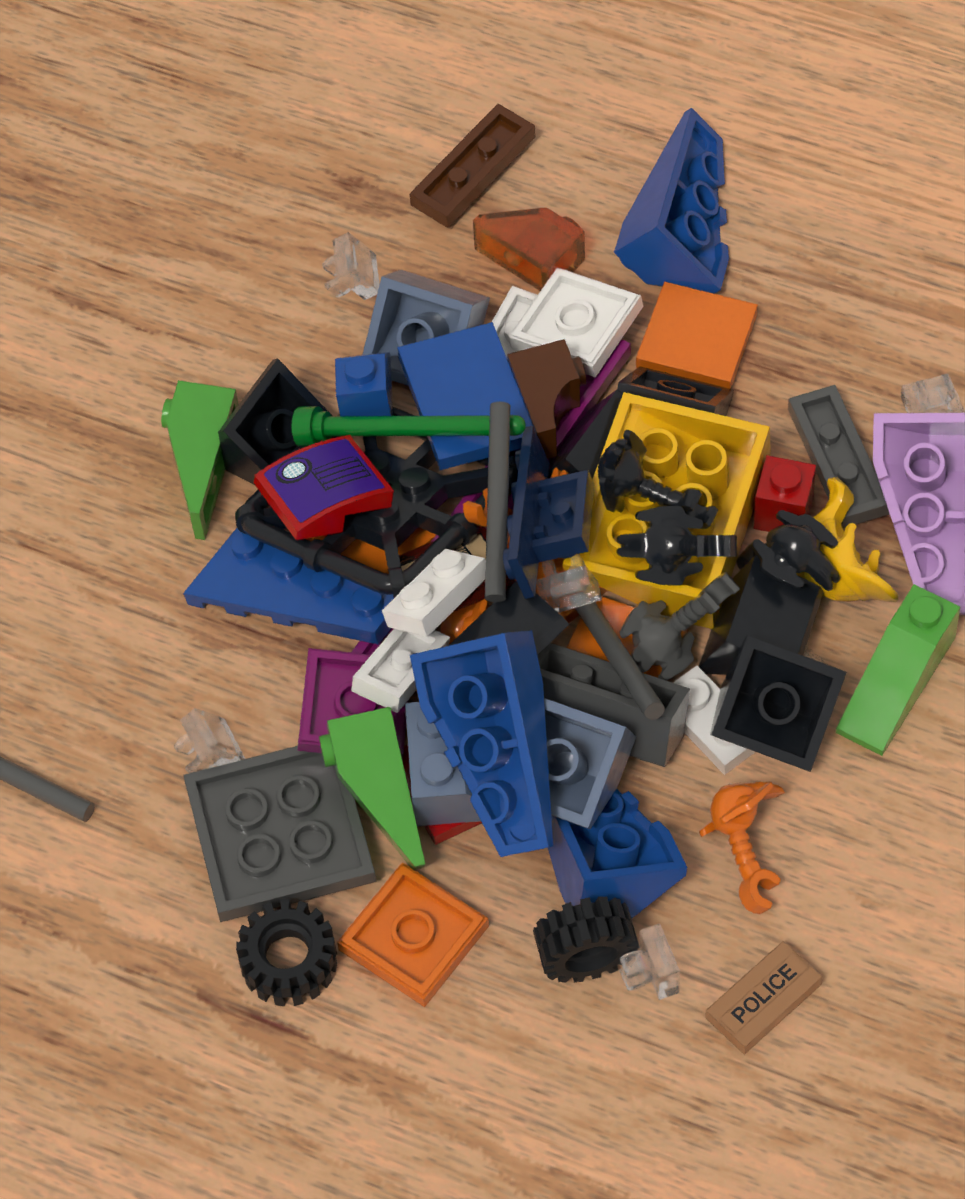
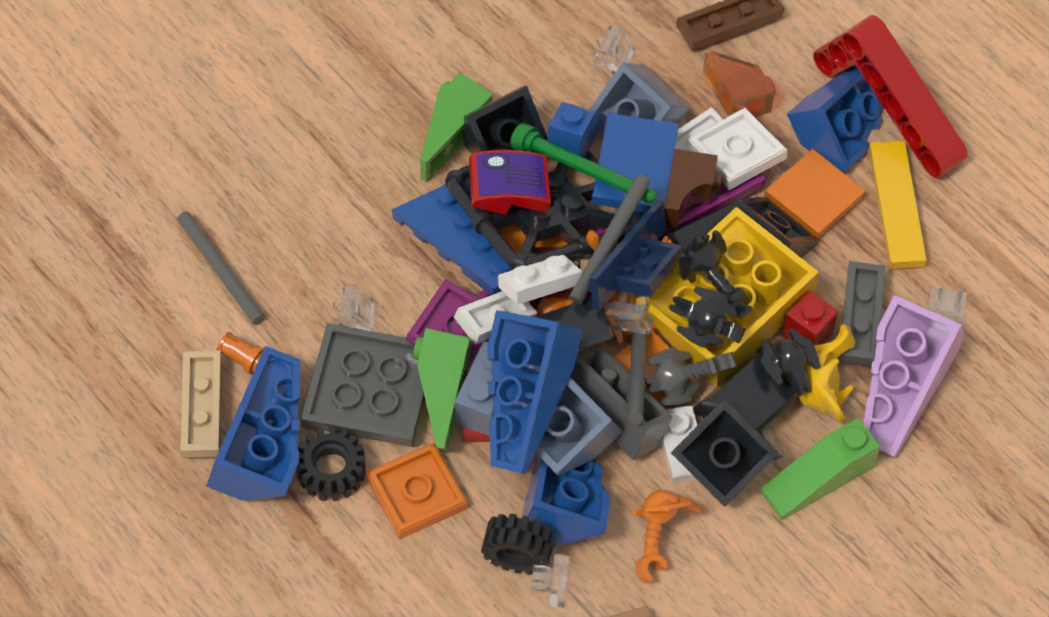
camera: 20 degrees right, 0 degrees up
(75, 955) = (200, 404): none -> tan plate
(112, 866) = (240, 351): none -> orange pin
(184, 967) = (263, 437): none -> blue wedge
(731, 157) = (898, 90): none -> red beam
(803, 305) = (897, 205): none -> yellow tile

